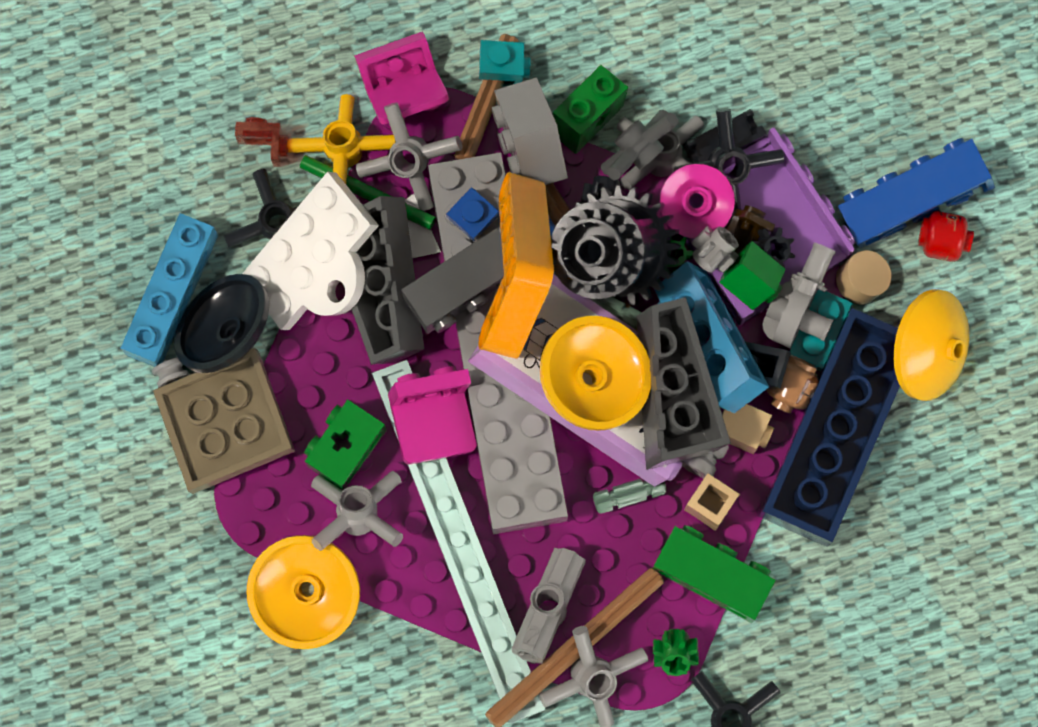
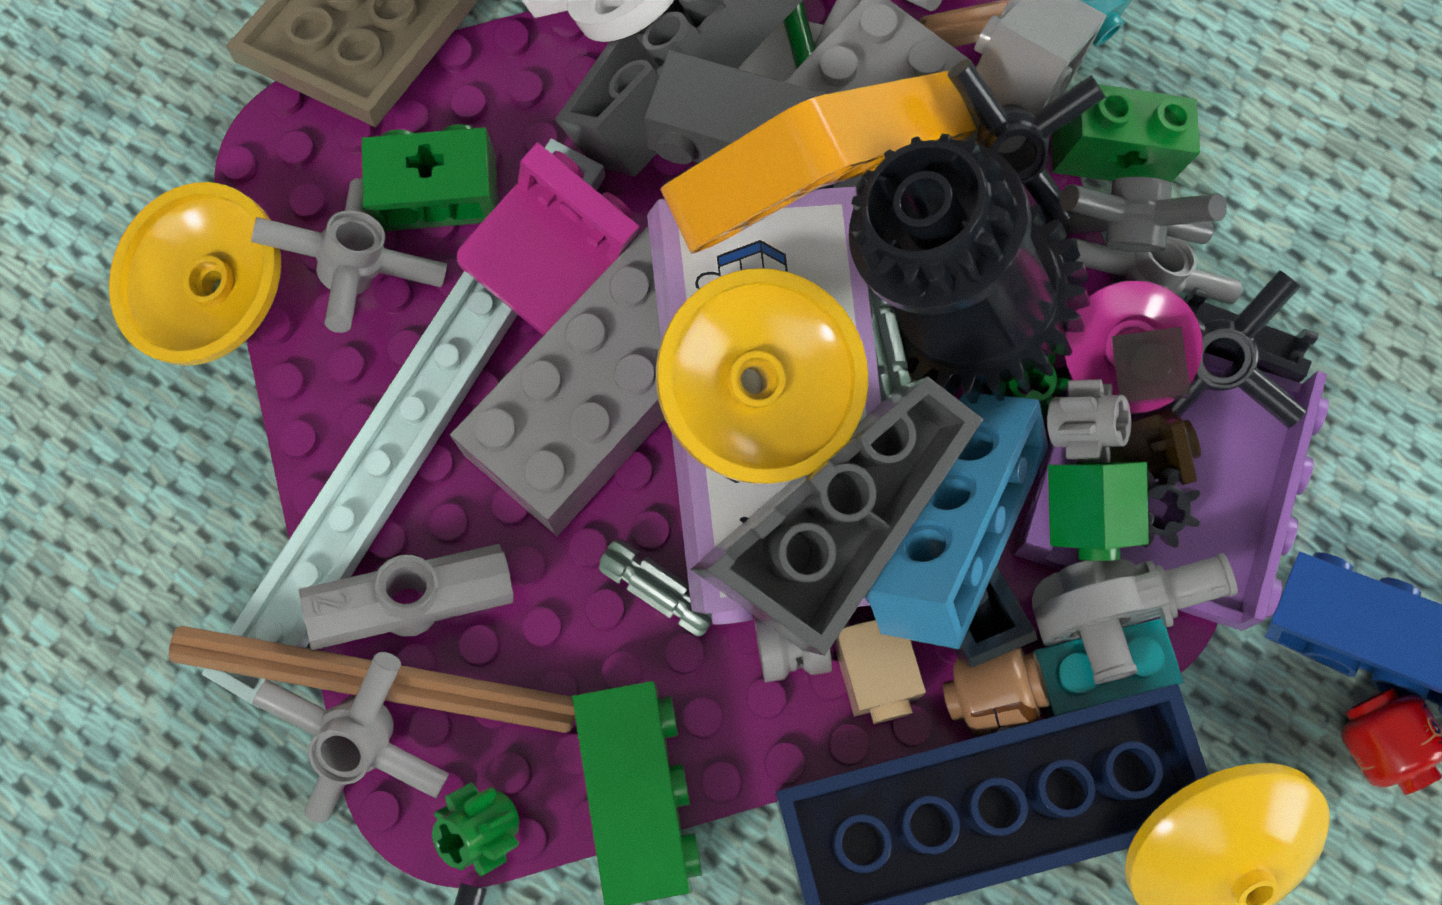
camera: 55 degrees right, 5 degrees down
(472, 214) = (854, 66): blue plate -> none
(566, 173) = (1010, 120): none -> black bar
(711, 501) = (731, 706): tan brick -> none
(713, 203) = (1151, 365): none -> clear smoke plate
(863, 277) = (1232, 671): tan piece -> none

